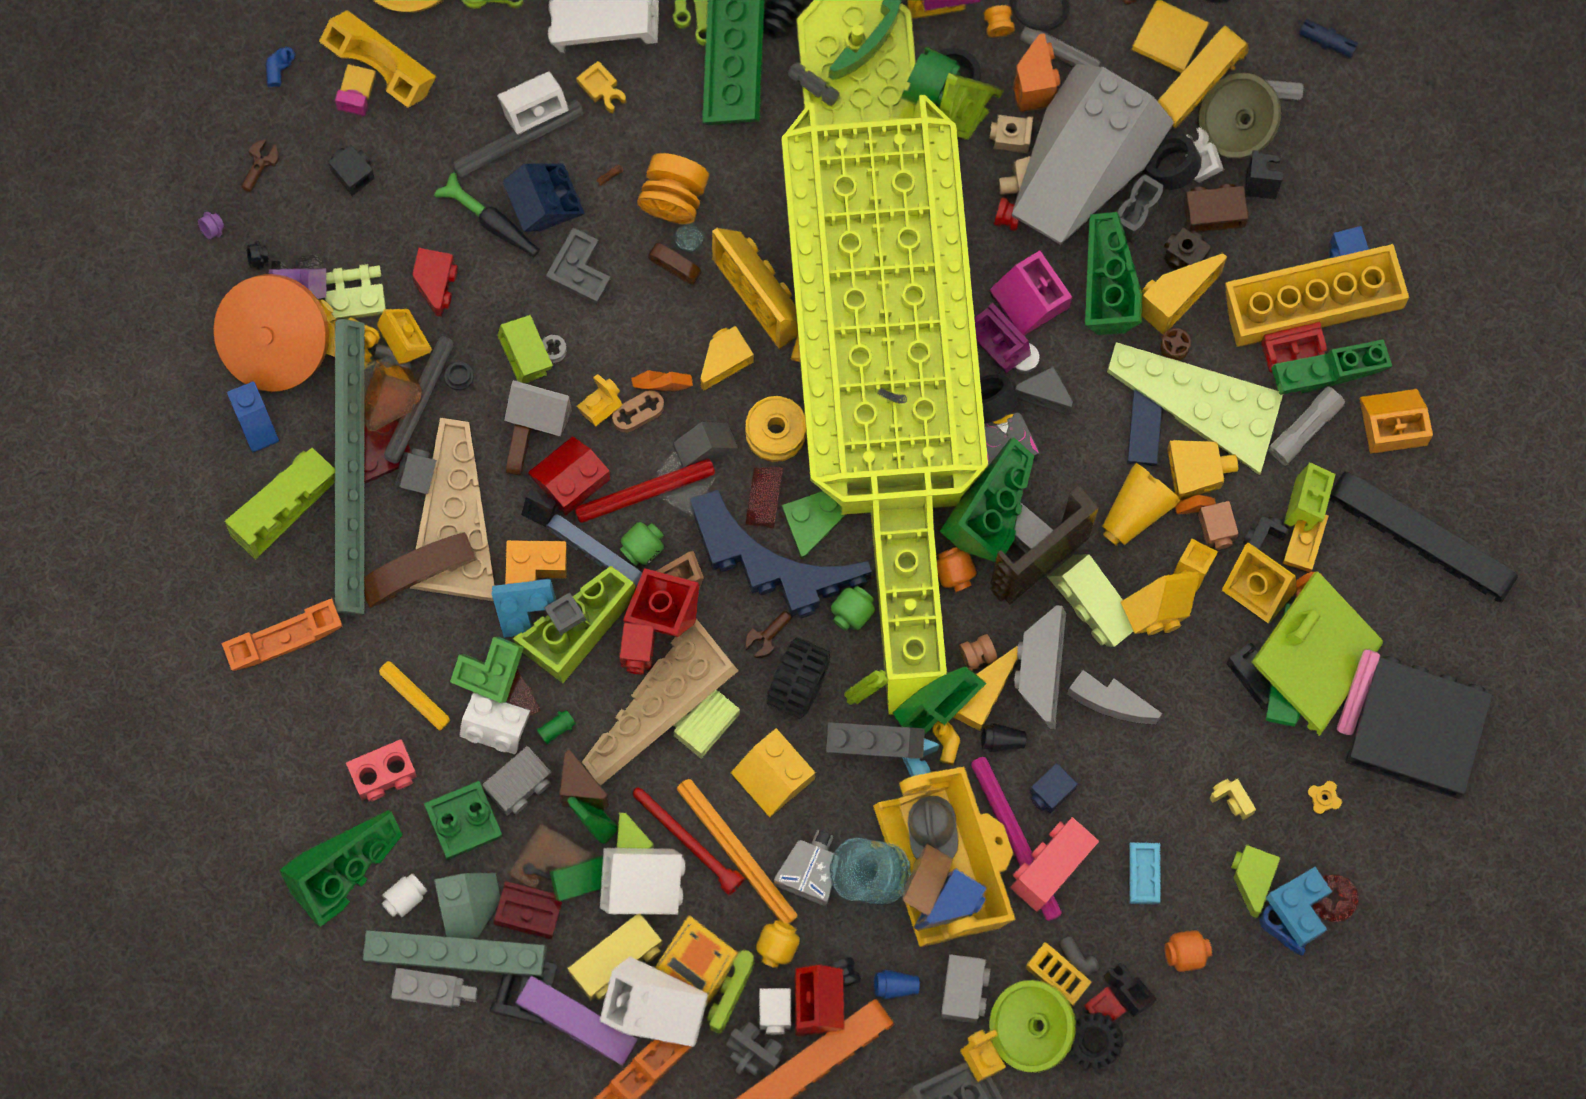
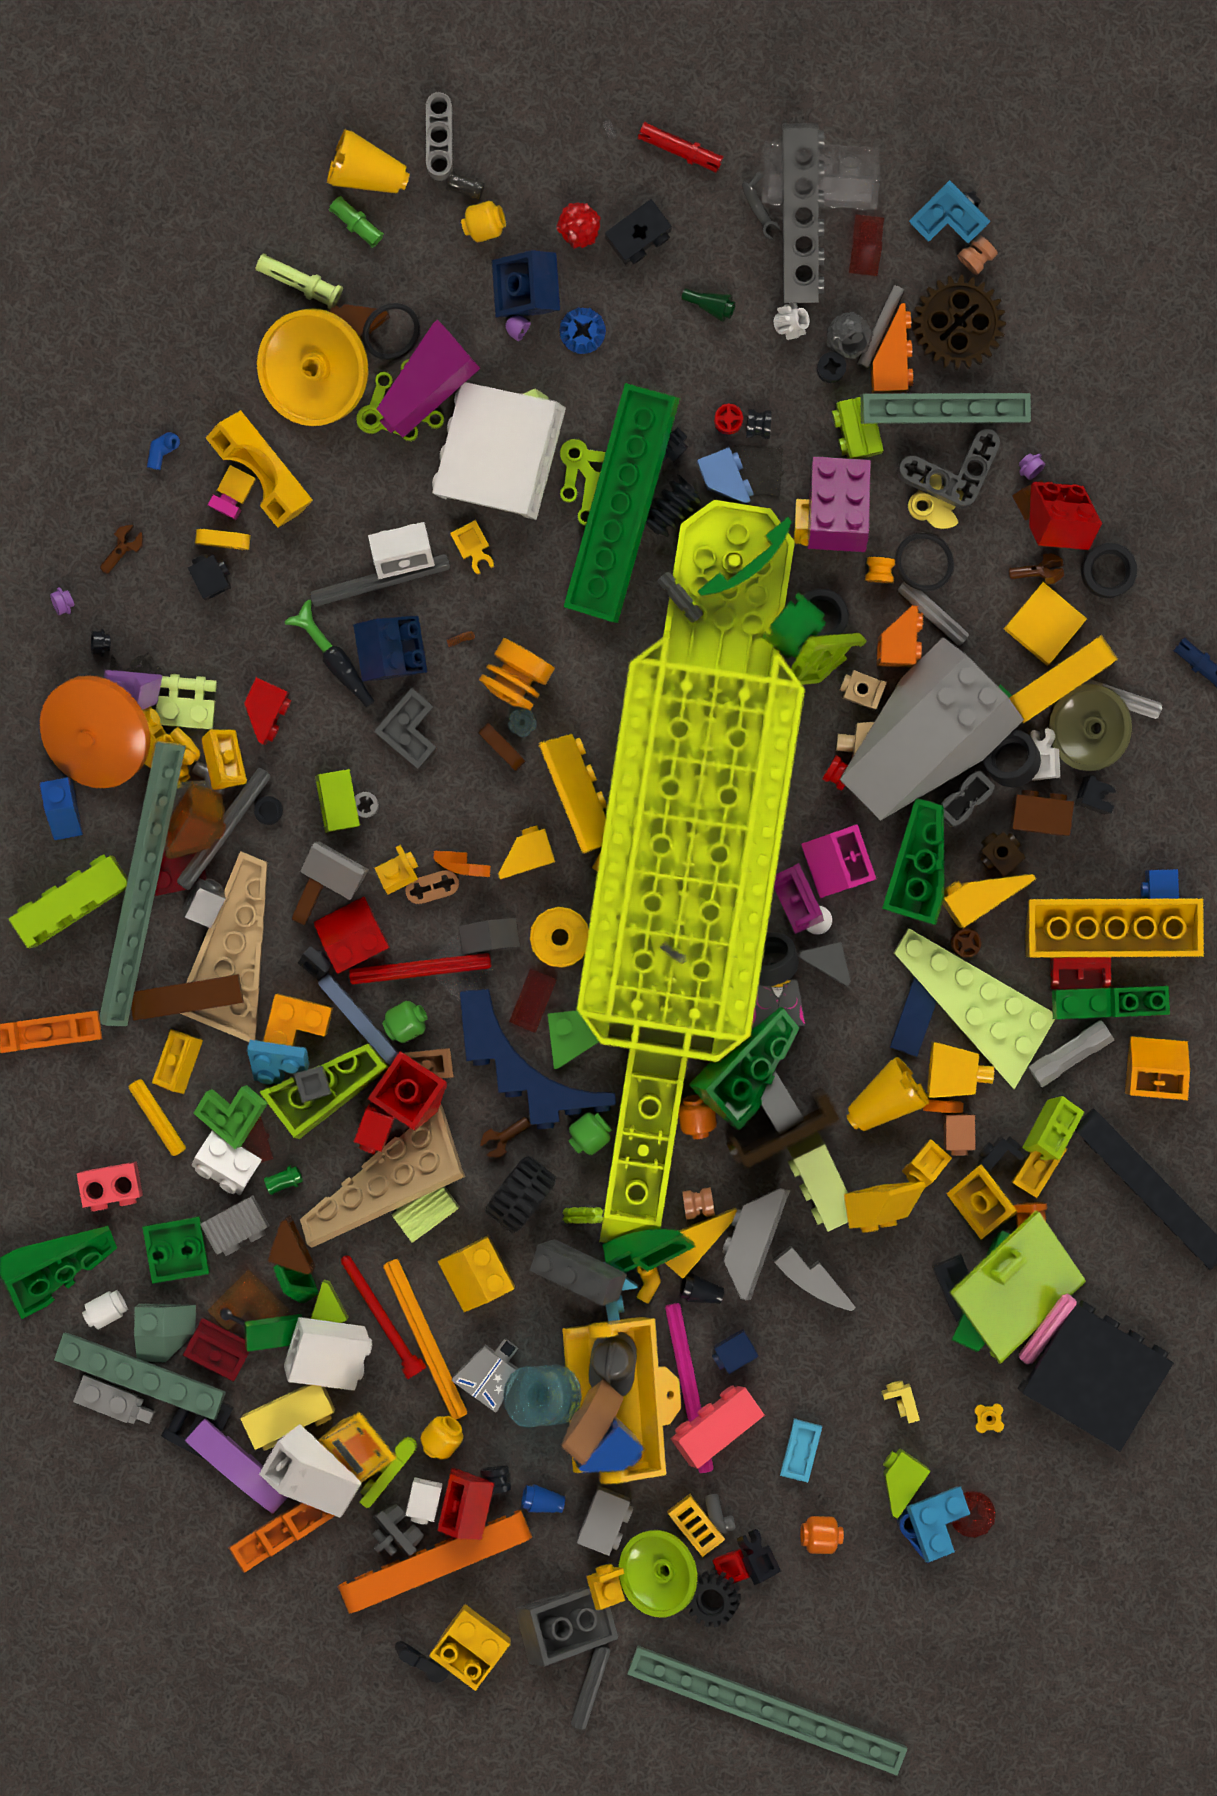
camera: 15 degrees right, 15 degrees up
(356, 132) = (222, 539): none -> yellow beam
(422, 636) = (177, 1061): none -> yellow slope

